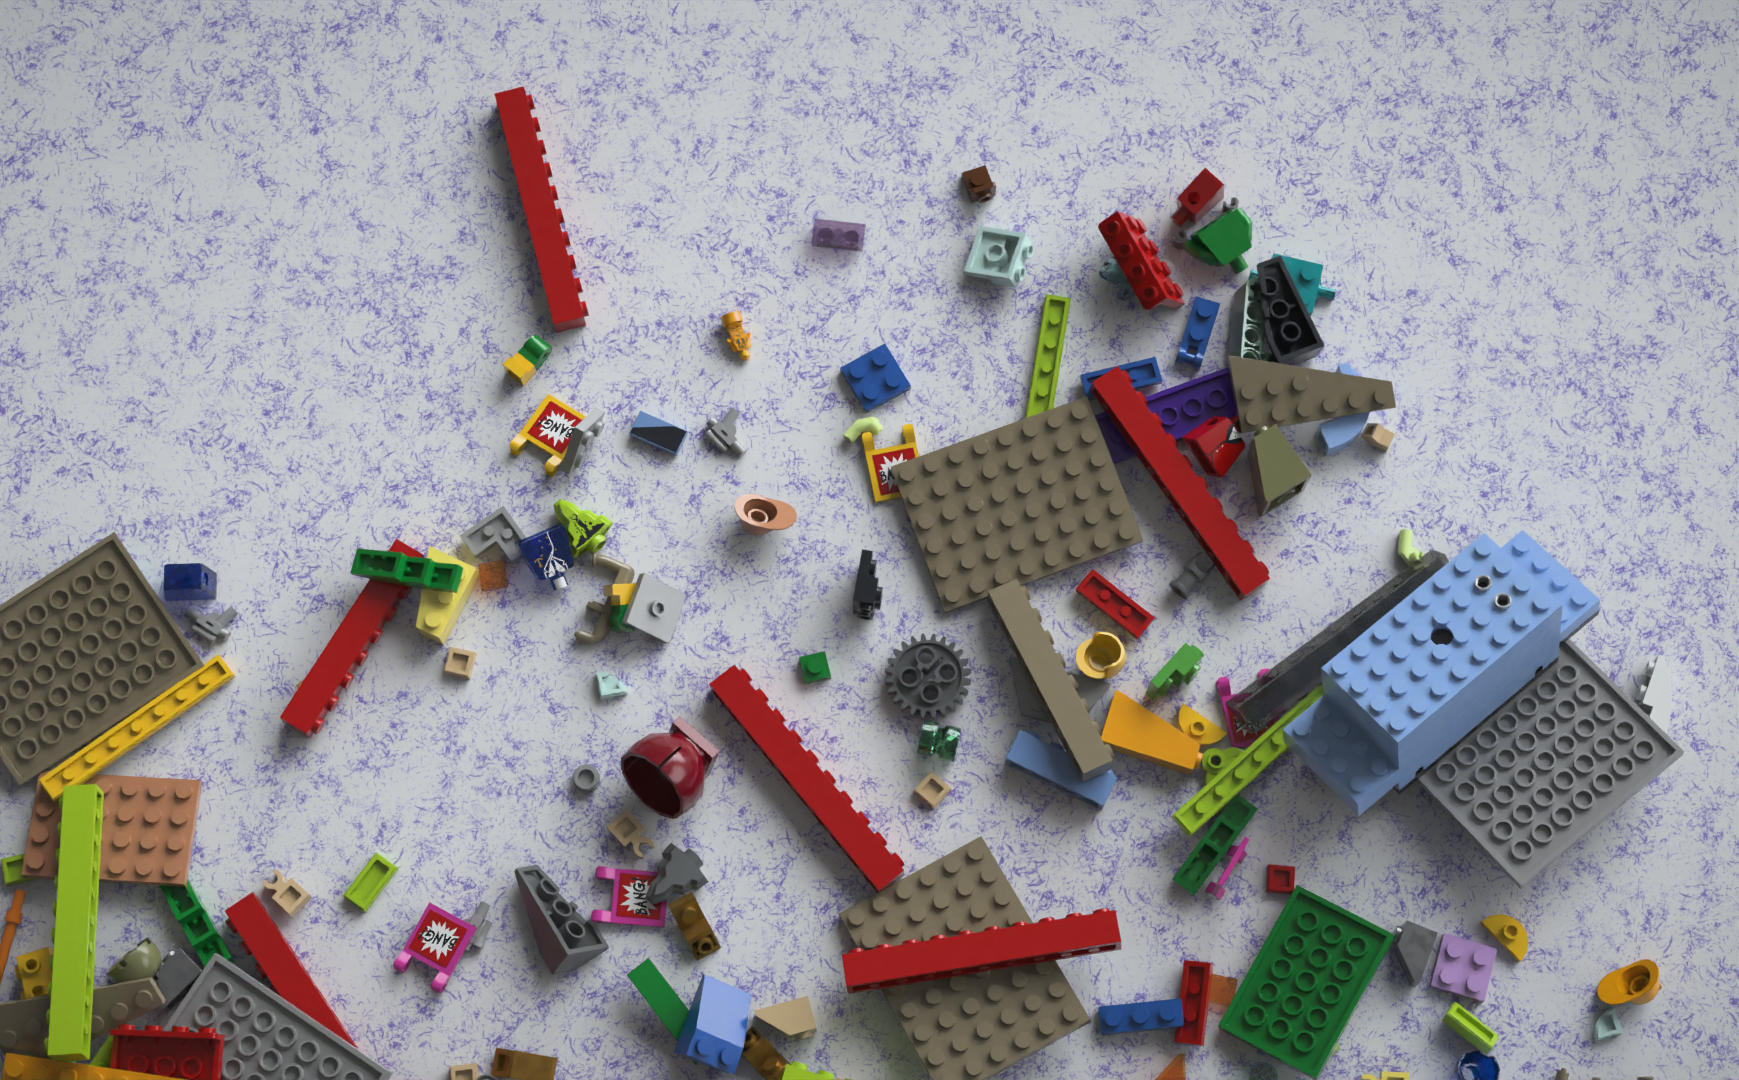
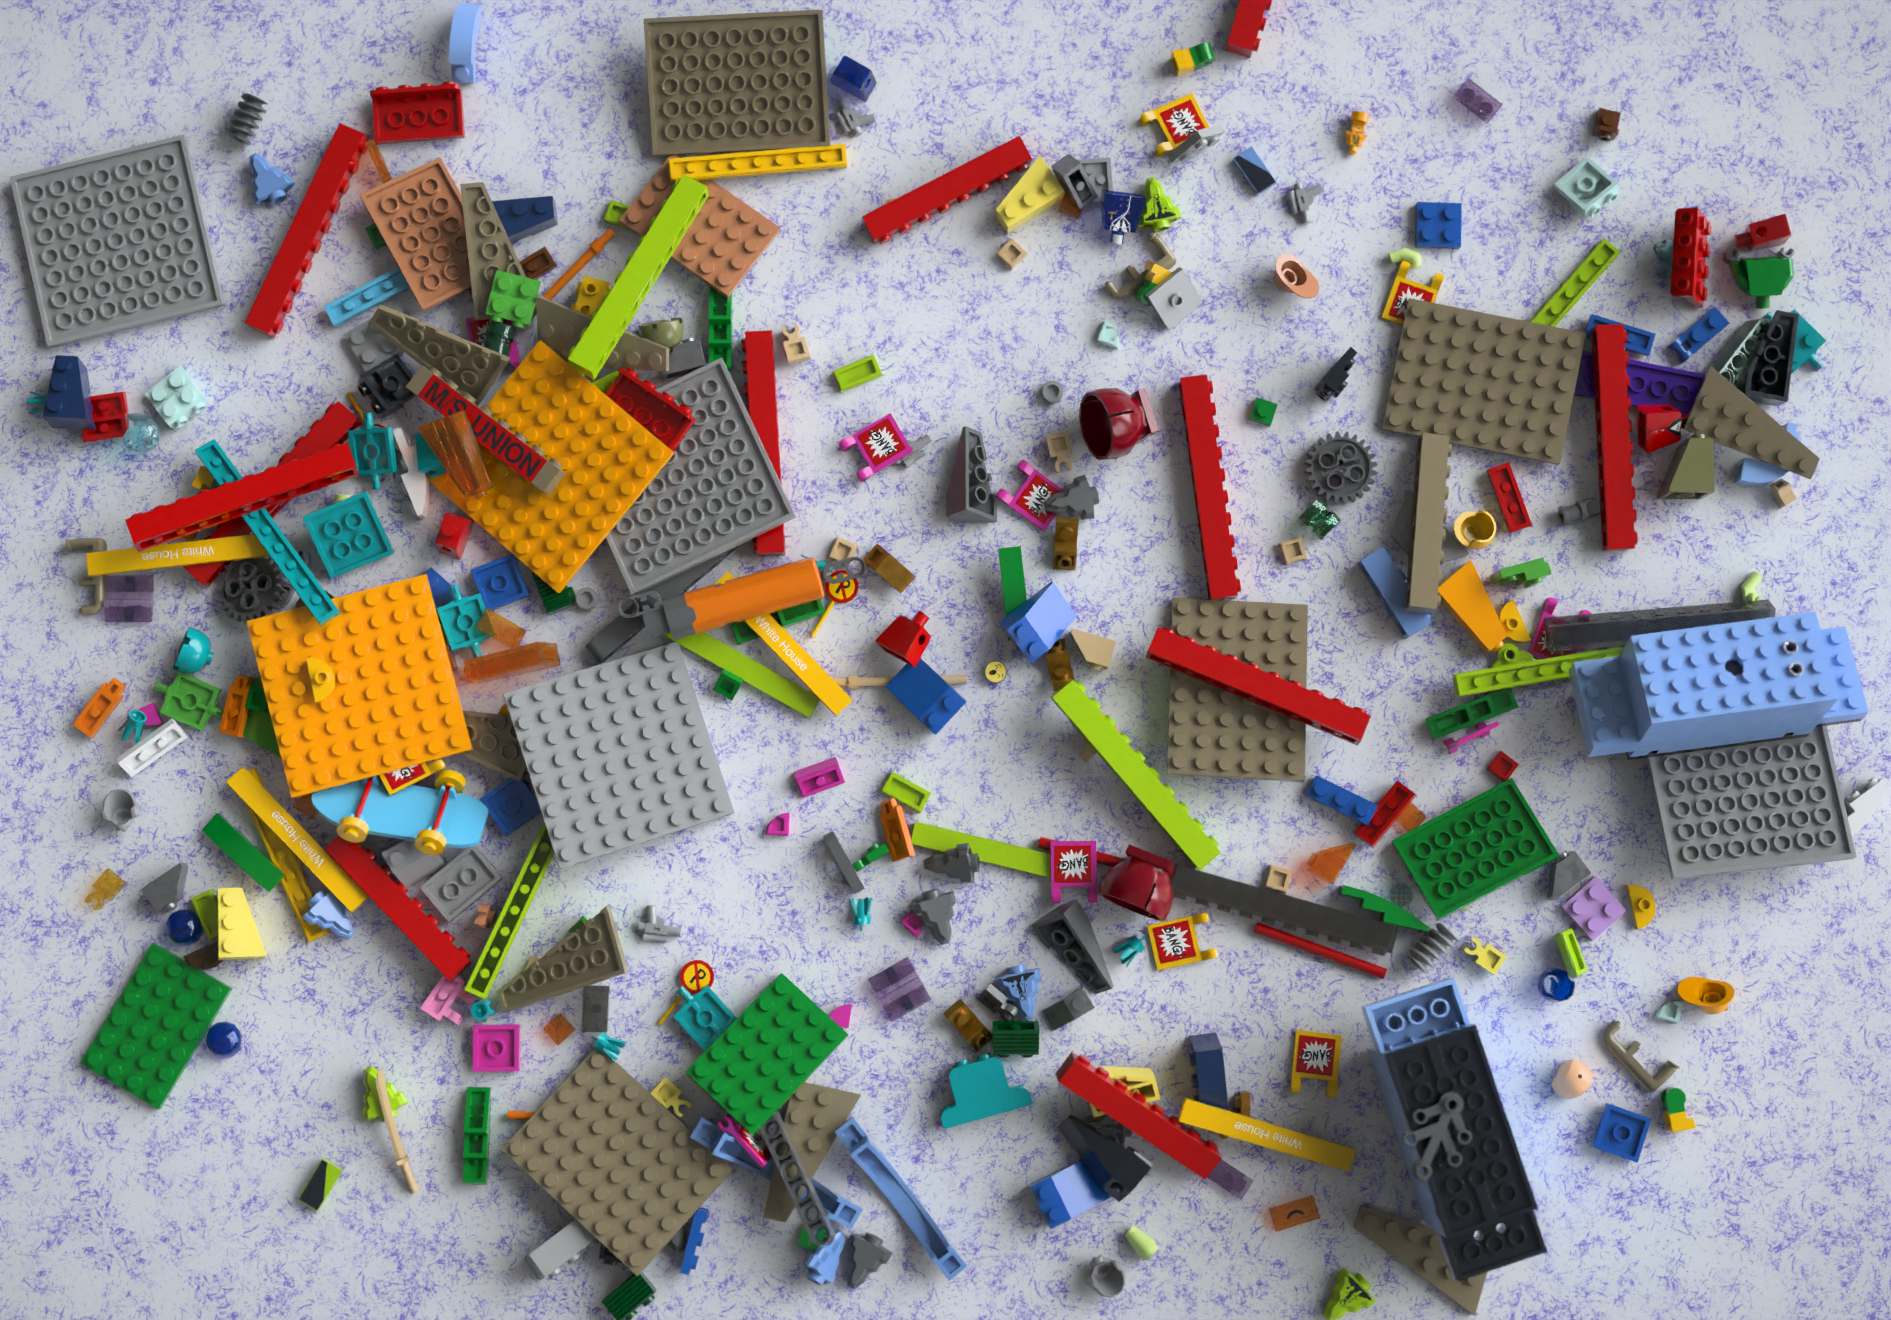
camera: 30 degrees right, 10 degrees up
(406, 570) = (1013, 164): green slope -> none
(480, 550) = (1074, 180): none -> flat silver slope

